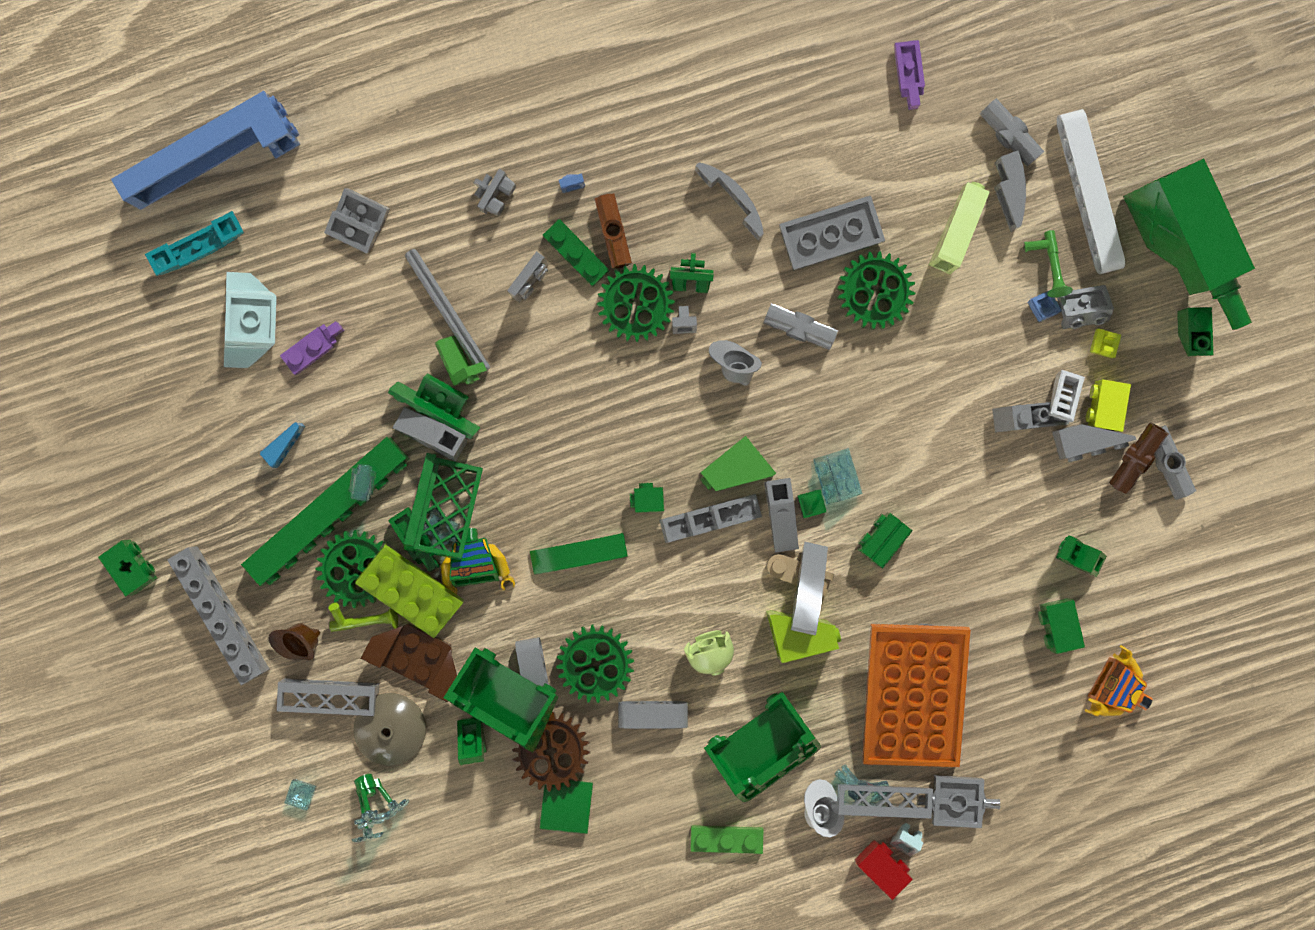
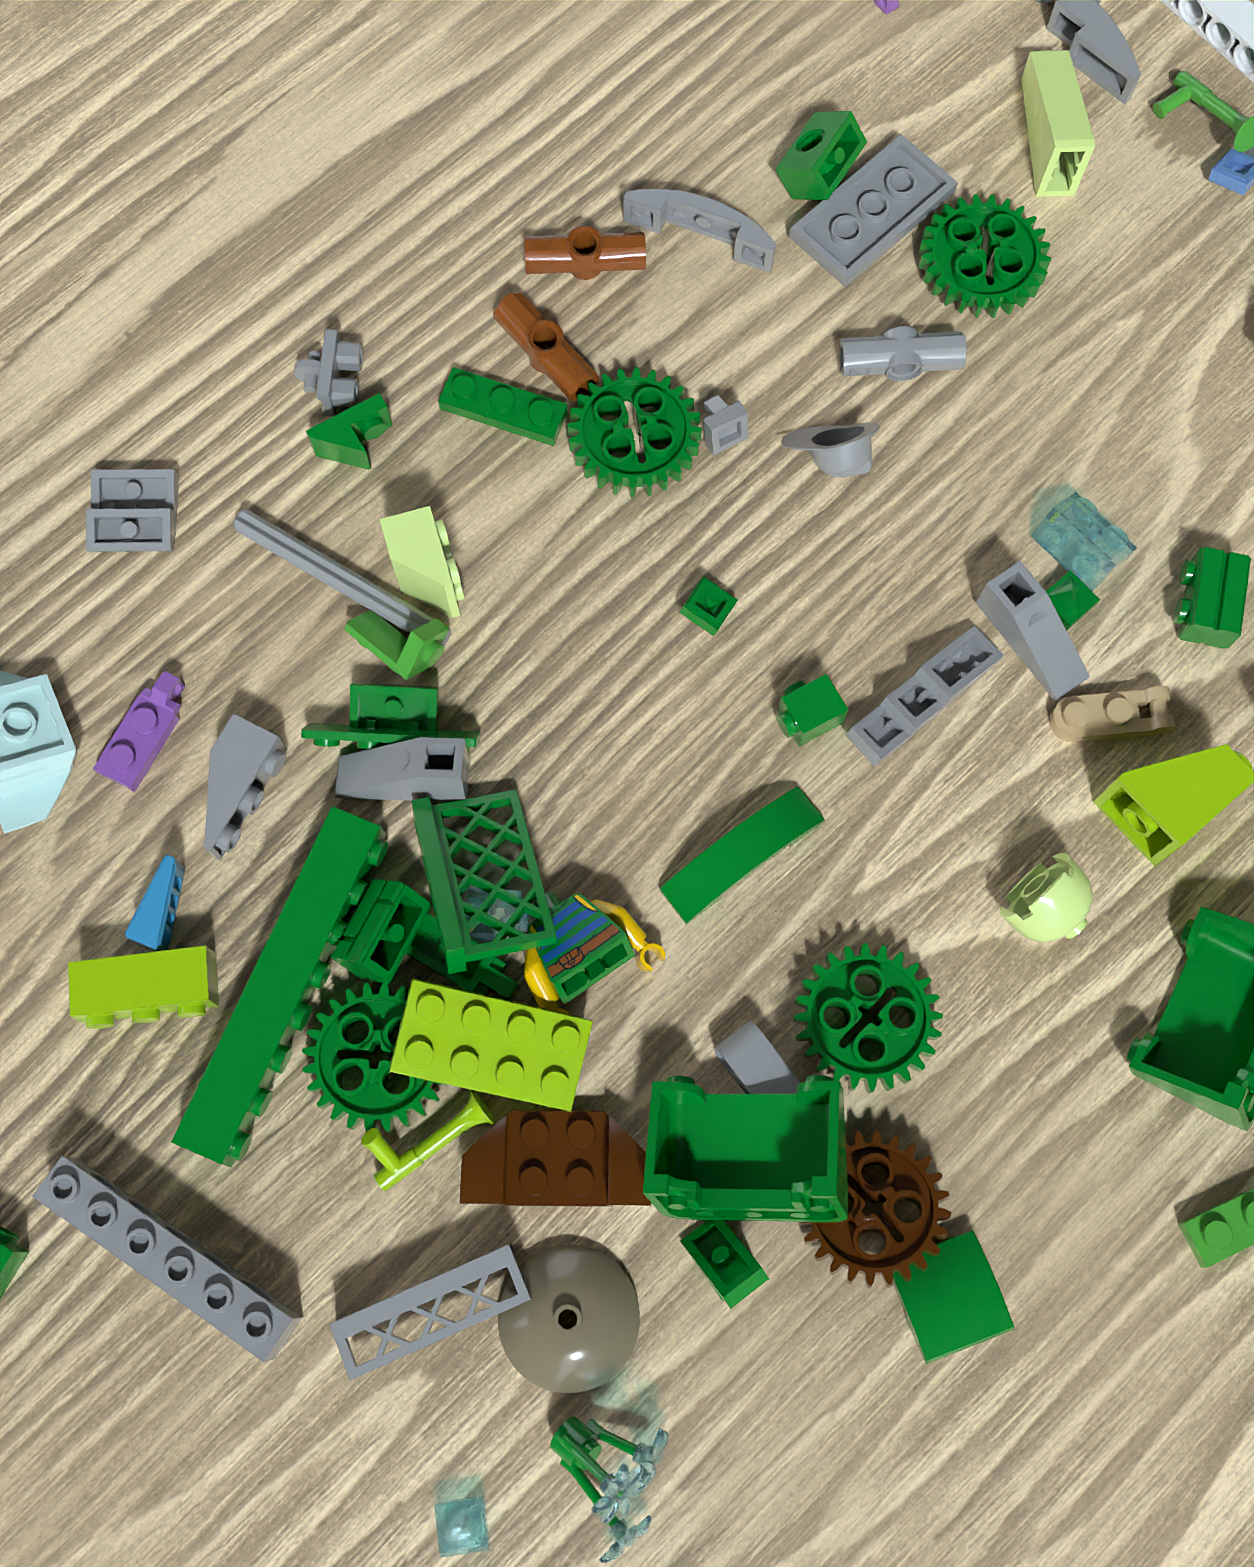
camera: 25 degrees left, 15 degrees down
(259, 480) = (143, 986): none -> lime brick
(295, 642) = (327, 1239): reddish brown piece -> none
(351, 391) = (238, 772): none -> light grey slope
(362, 482) = (325, 893): clear light blue brick -> none
(383, 510) = (381, 930): none -> green brick
(482, 231) = (342, 434): none -> green slope
(489, 325) = (423, 559): none -> yellowish green slope
(534, 270) = (447, 459): light grey plate -> none
(571, 182) = (447, 308): medium blue tile -> none
(626, 418) = (708, 606): none -> green tile
(646, 178) = (606, 251): none -> dark orange piece
(652, 714) = (1009, 1057): light grey beam -> none
(702, 276) = (716, 350): green hips -> none
(736, 467) = (924, 596): bright green slope -> none
(809, 588) = (1154, 714): light grey slope -> none
(818, 189) = (821, 155): none -> green brick

